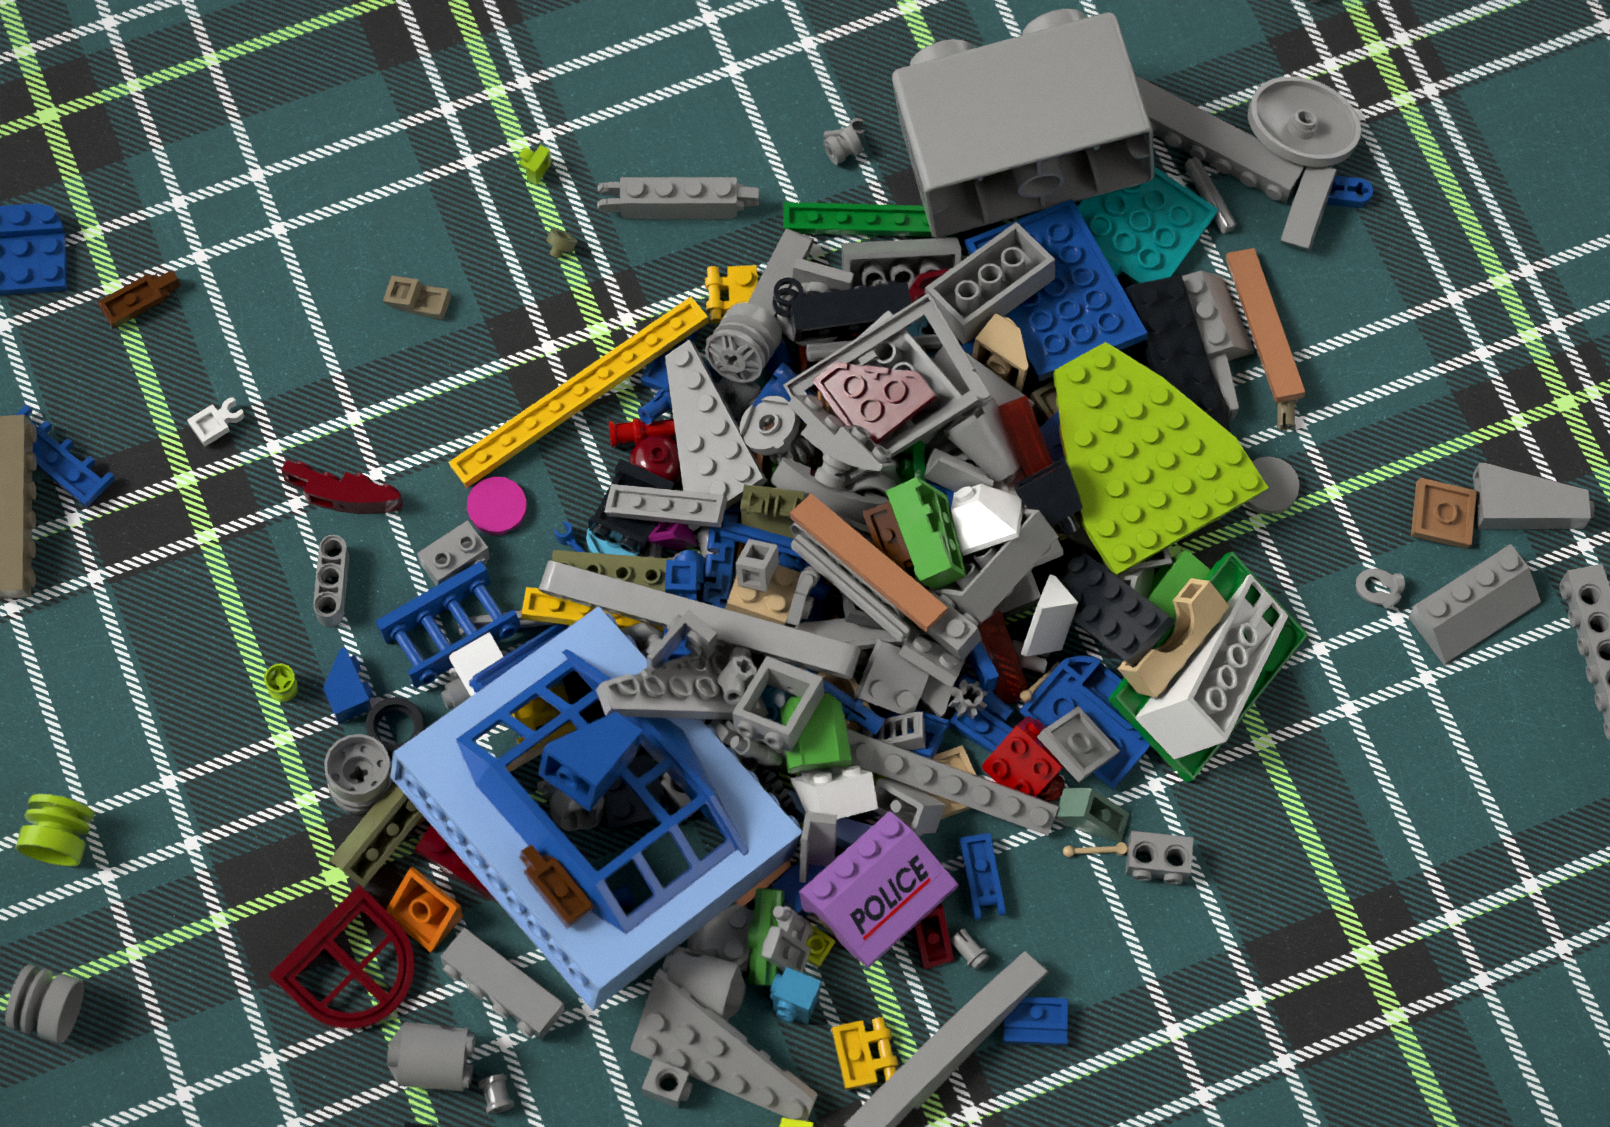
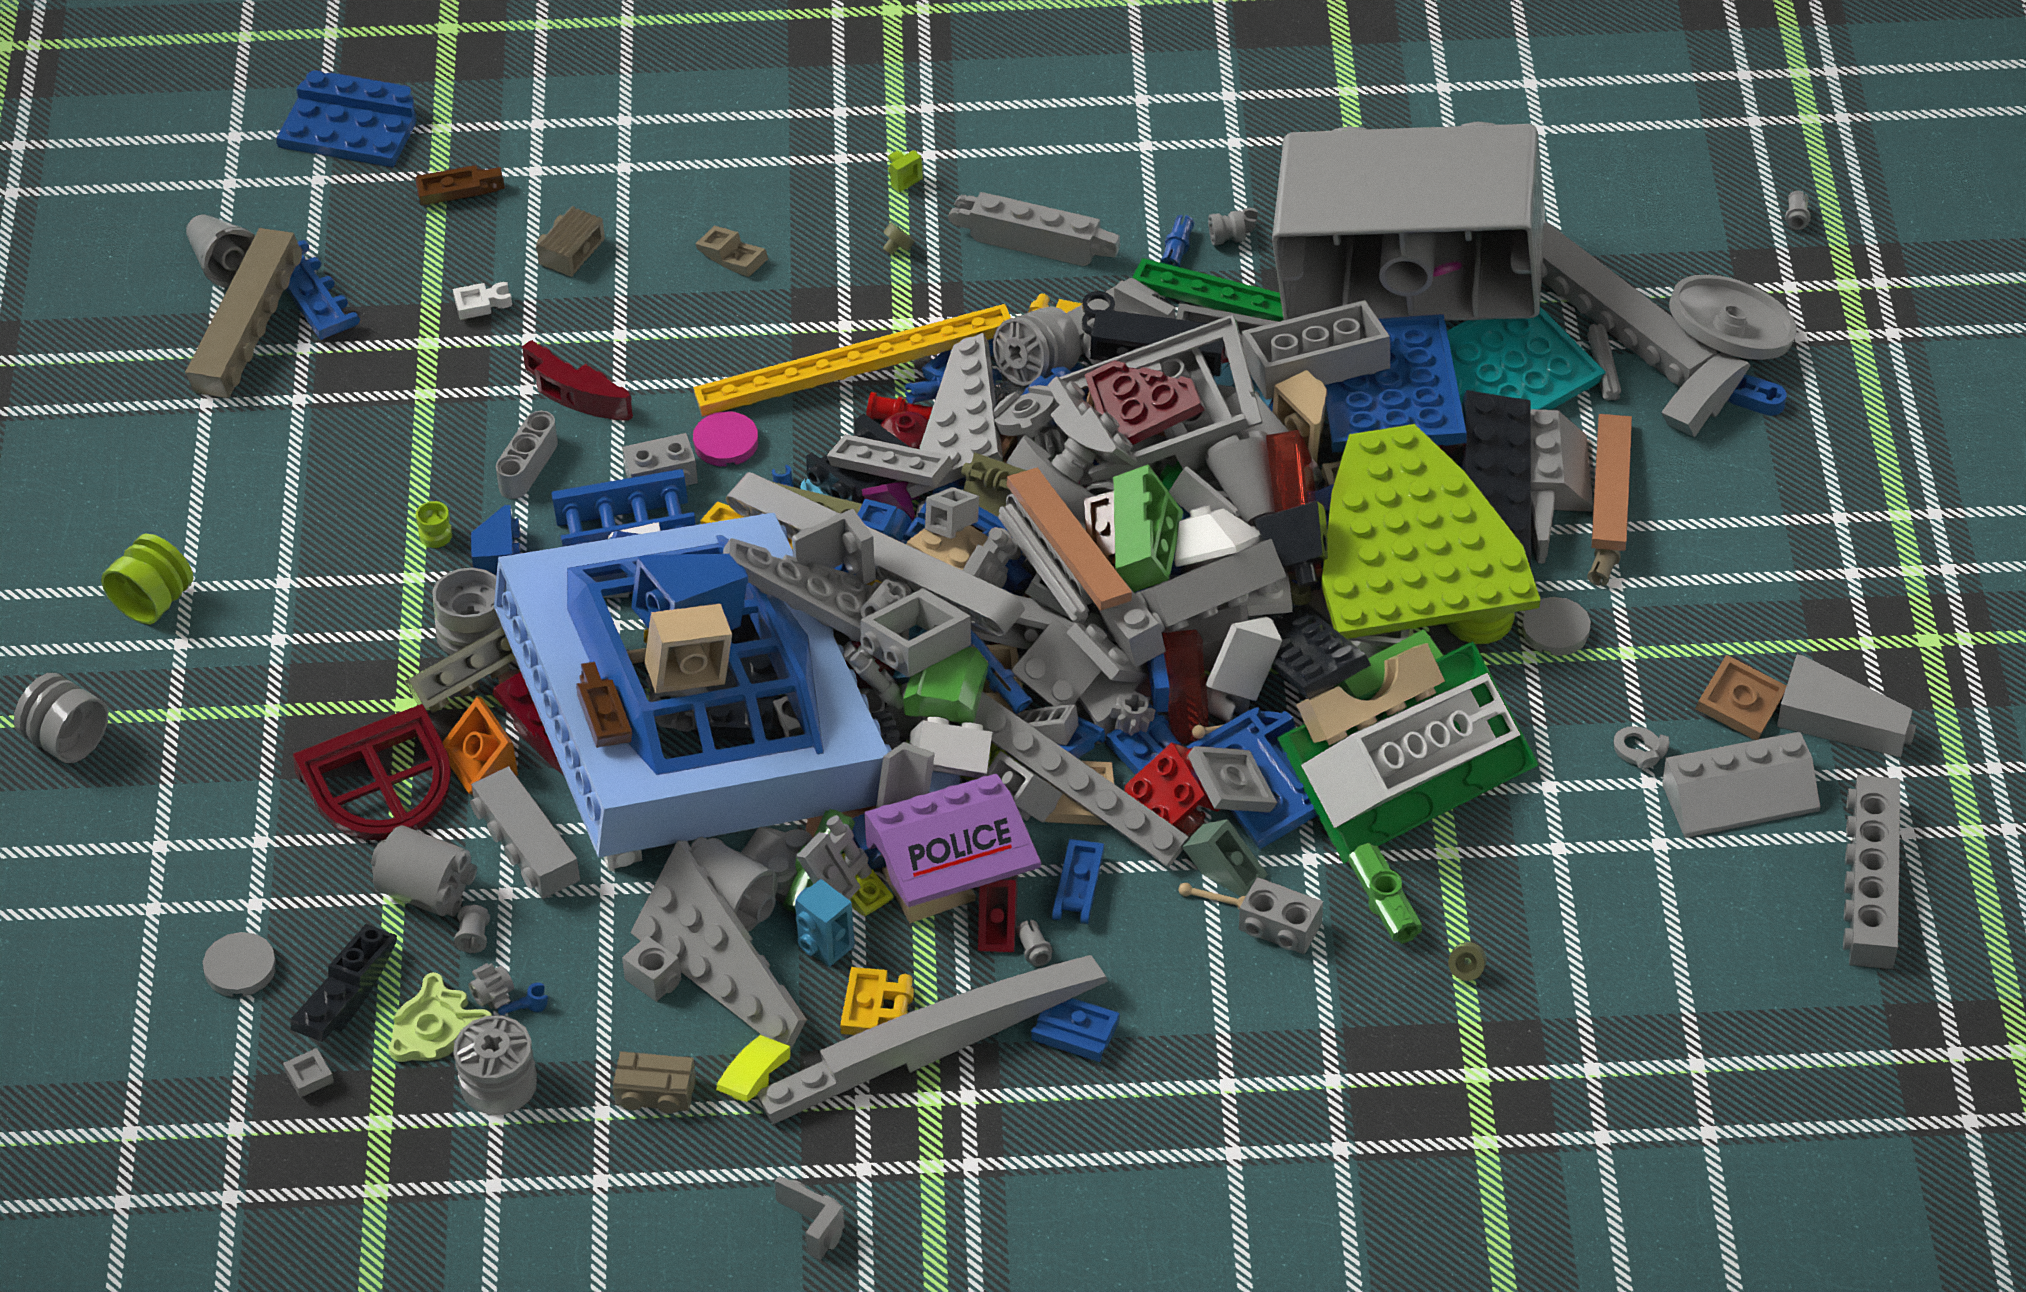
camera: 25 degrees right, 20 degrees down
(269, 332) = (570, 241): none -> dark tan brick
(615, 814) = (688, 648): none -> tan brick
(804, 173) = (1178, 241): none -> blue pin
(1248, 819) = (1385, 893): none -> bright green piece
(1323, 852) = (1465, 968): none -> olive tile

